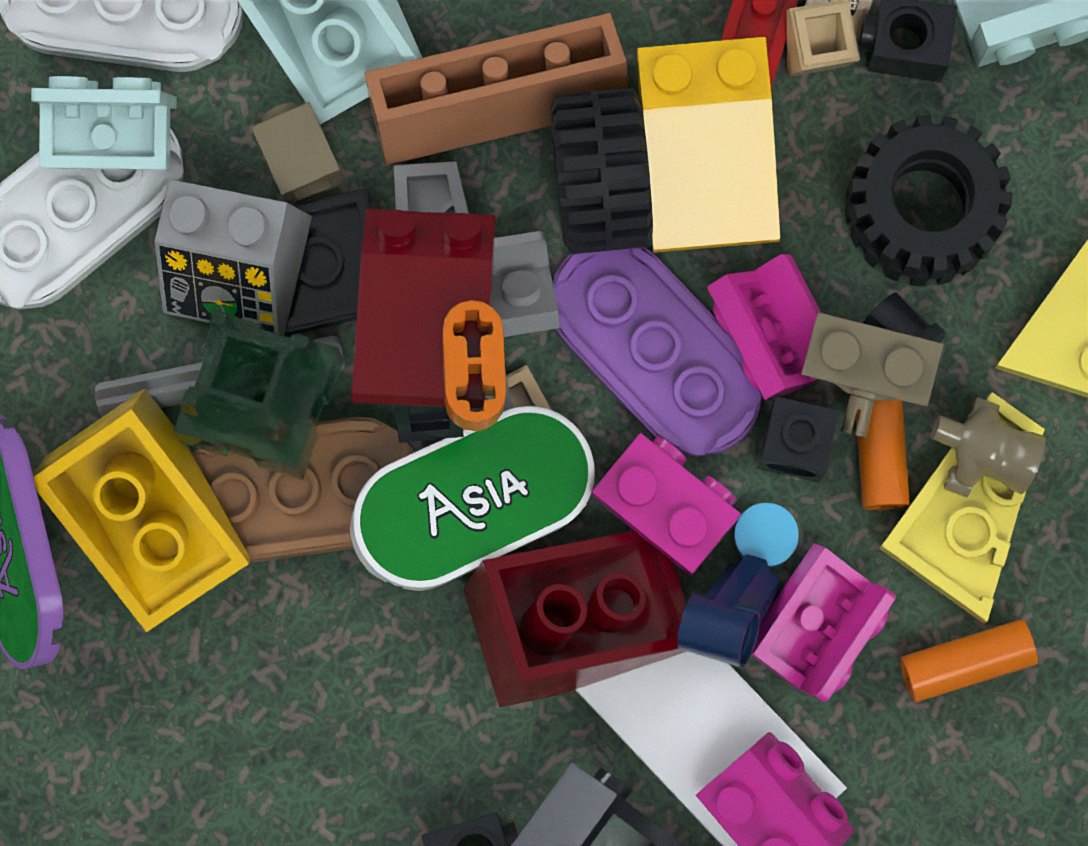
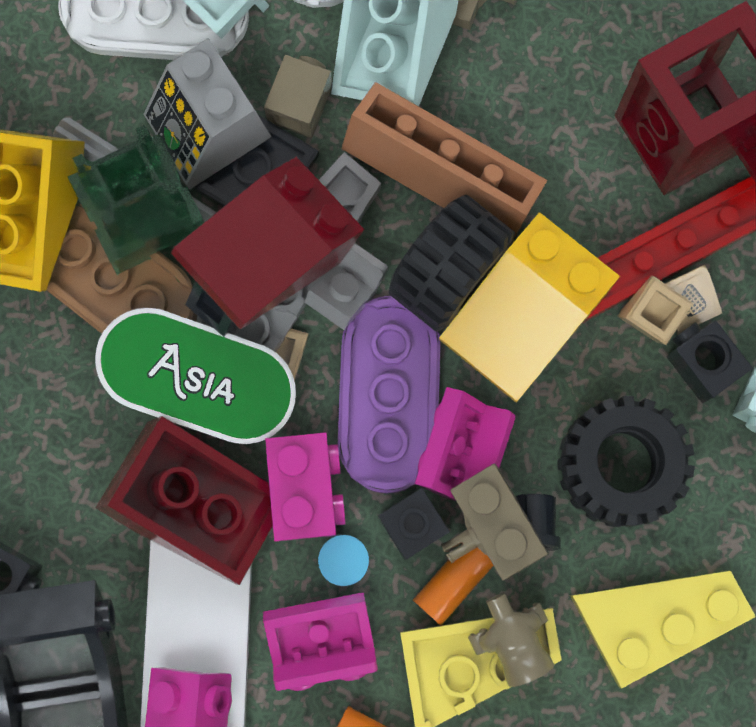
camera: 45 degrees right, 0 degrees up
(489, 365) = (246, 289): orange beam -> none
(729, 616) = (265, 587): dark blue piece -> none

